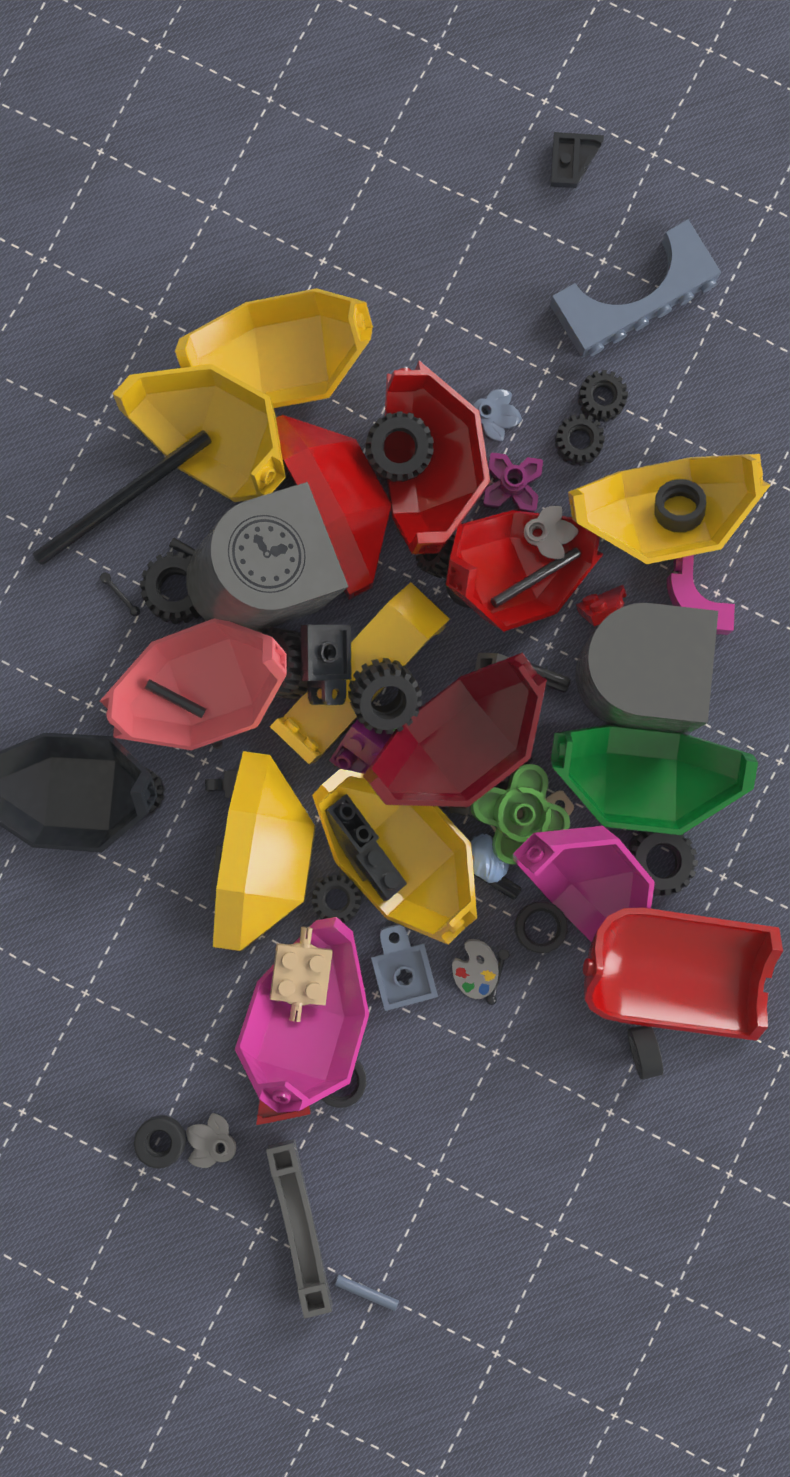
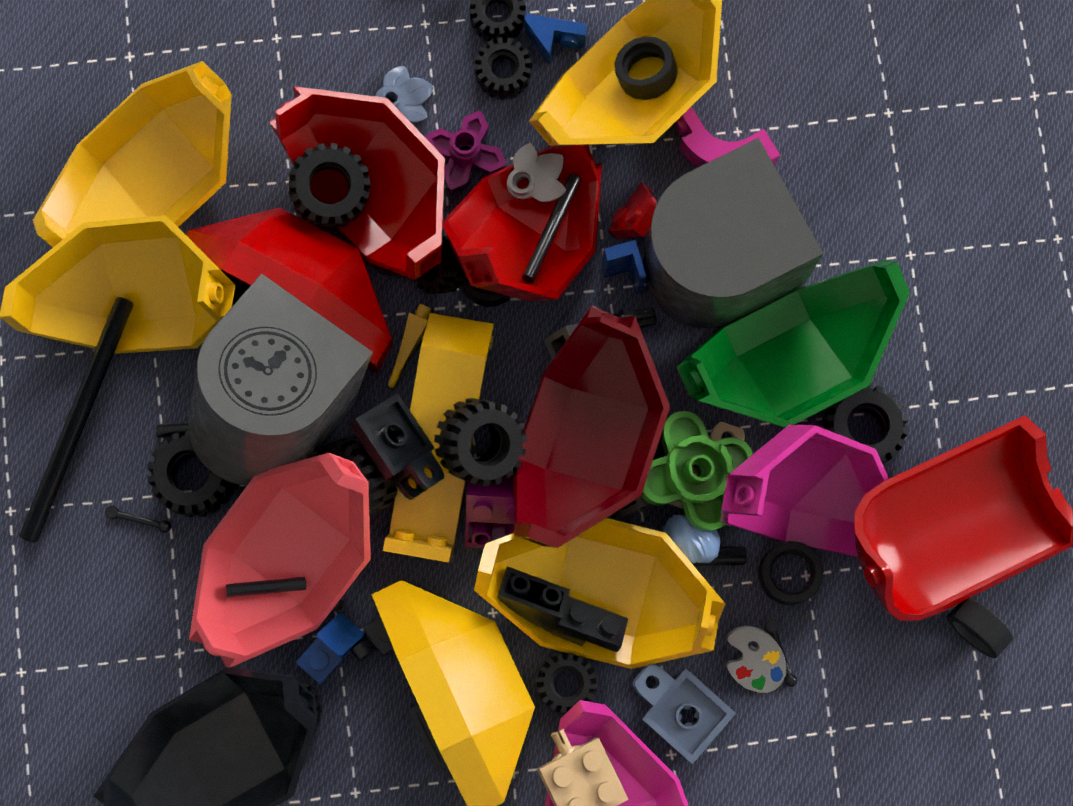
camera: 30 degrees left, 5 degrees down
(192, 768) = (330, 648): none -> blue slope
(387, 591) = (412, 336): none -> yellow piece
(572, 632) = (622, 259): none -> blue panel
(627, 433) = (546, 30): none -> blue slope

